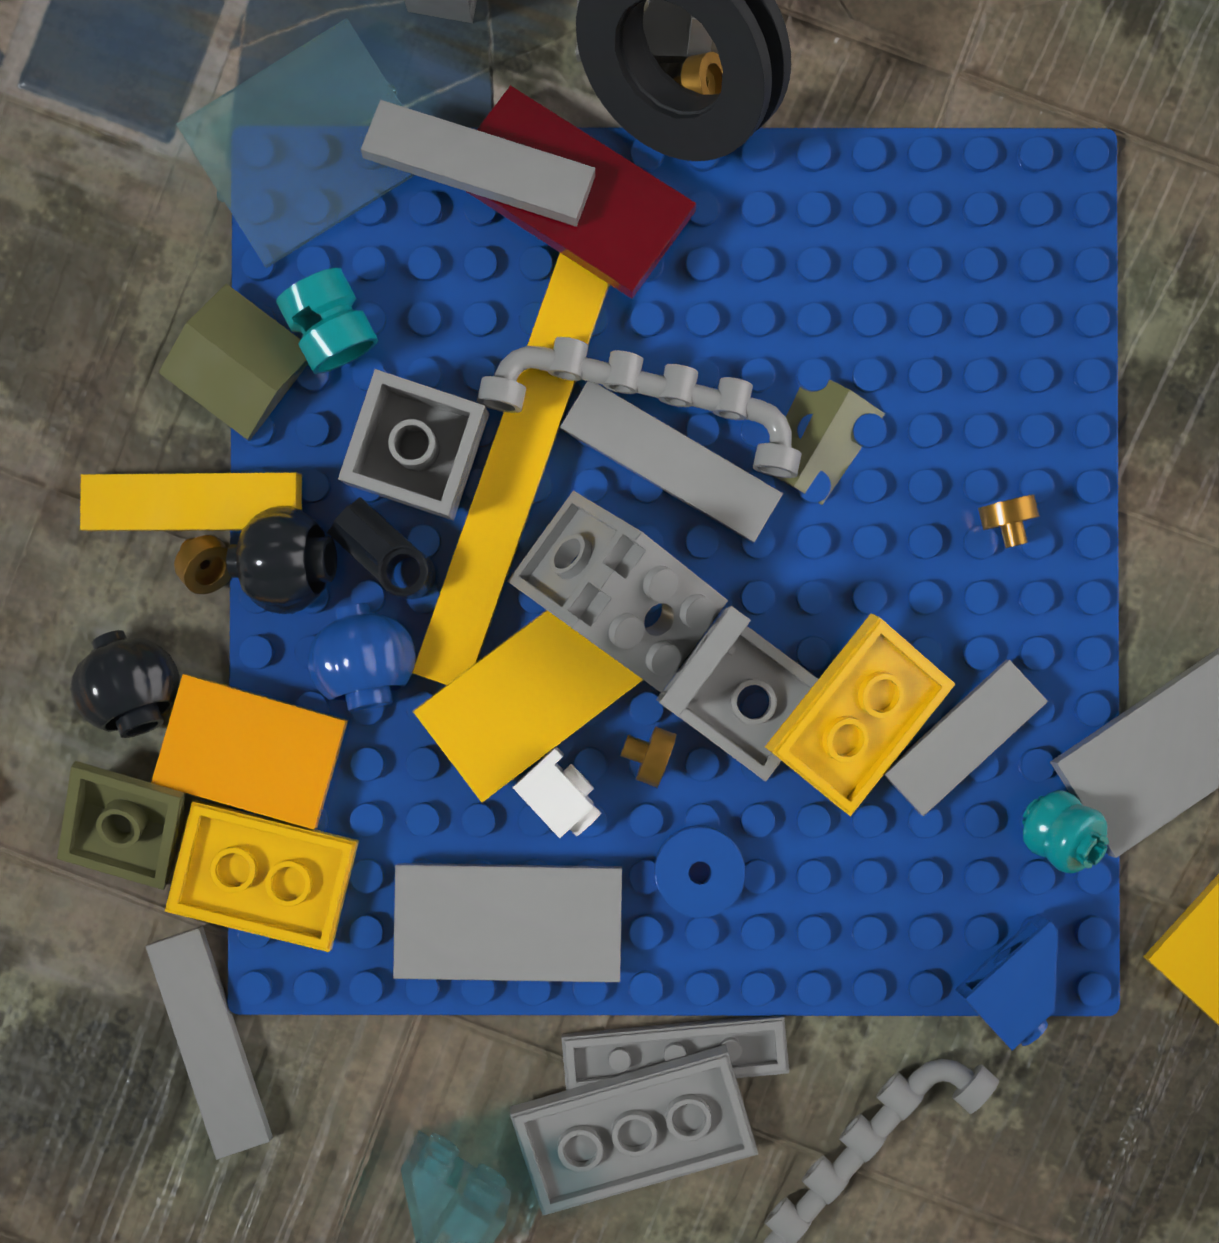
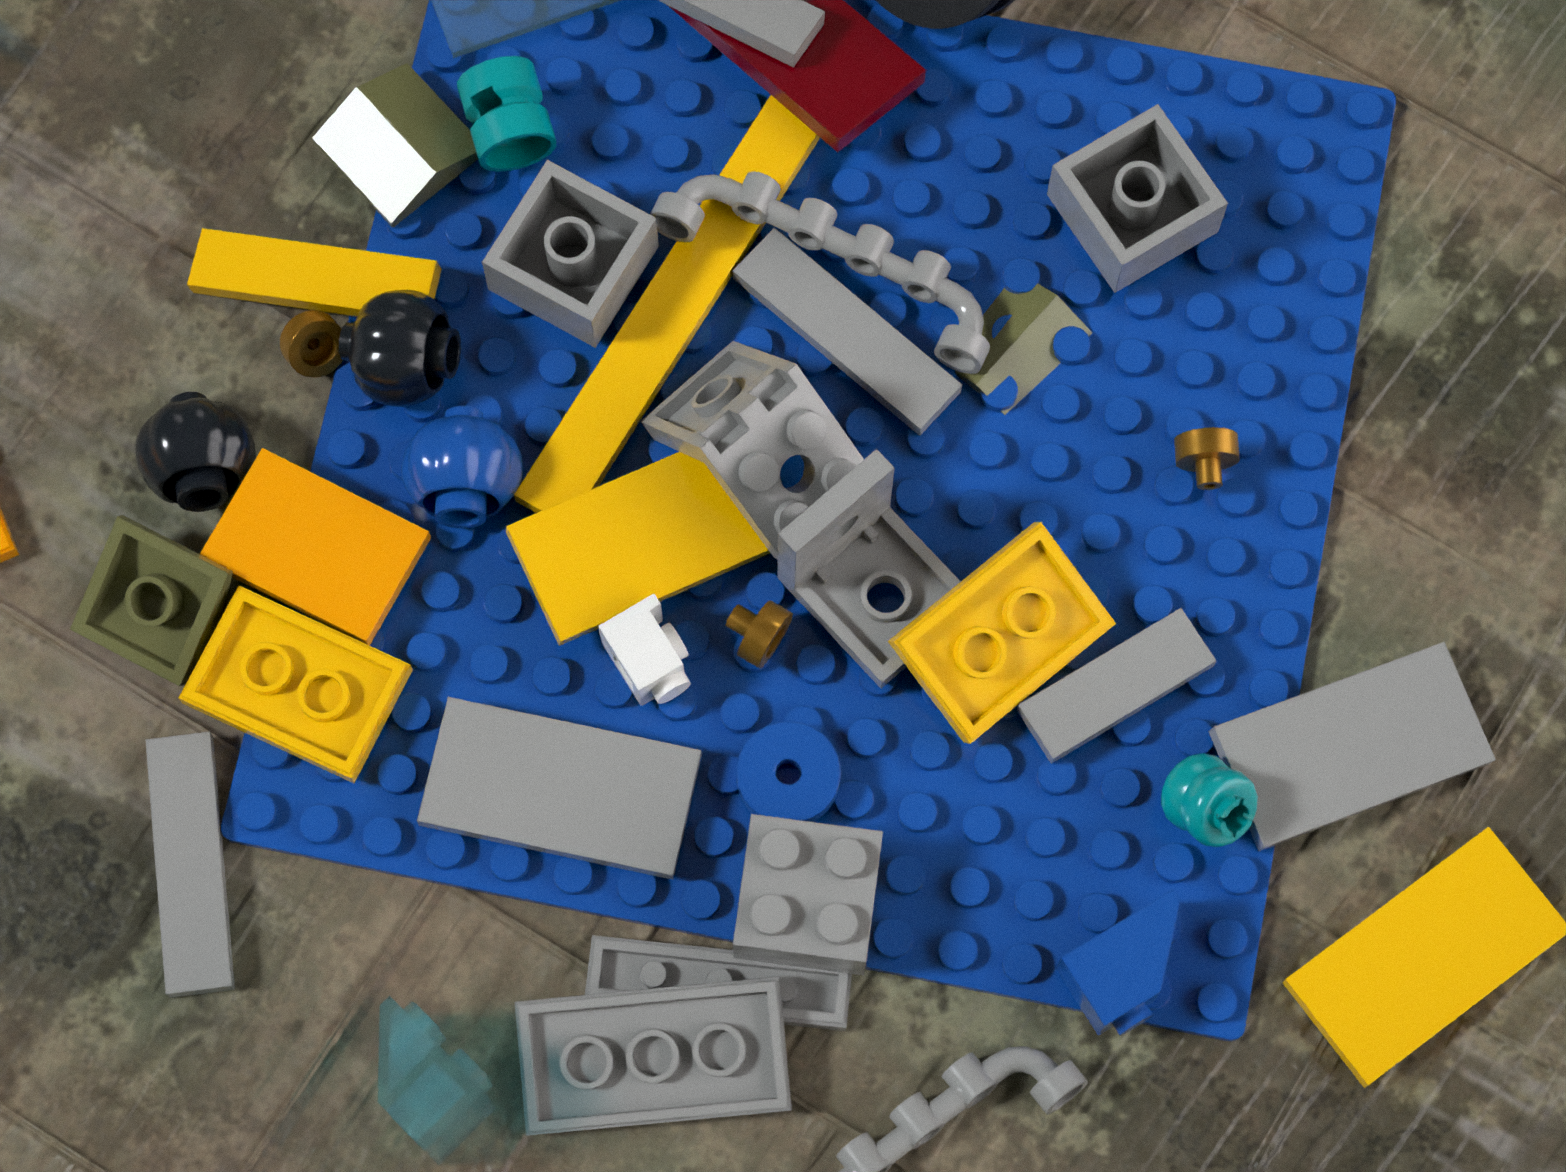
camera: 10 degrees right, 15 degrees down
(380, 548) = (512, 359): black piece -> none
(739, 981) = (807, 894): none -> light grey brick
(908, 291) = (1136, 198): none -> light grey brick

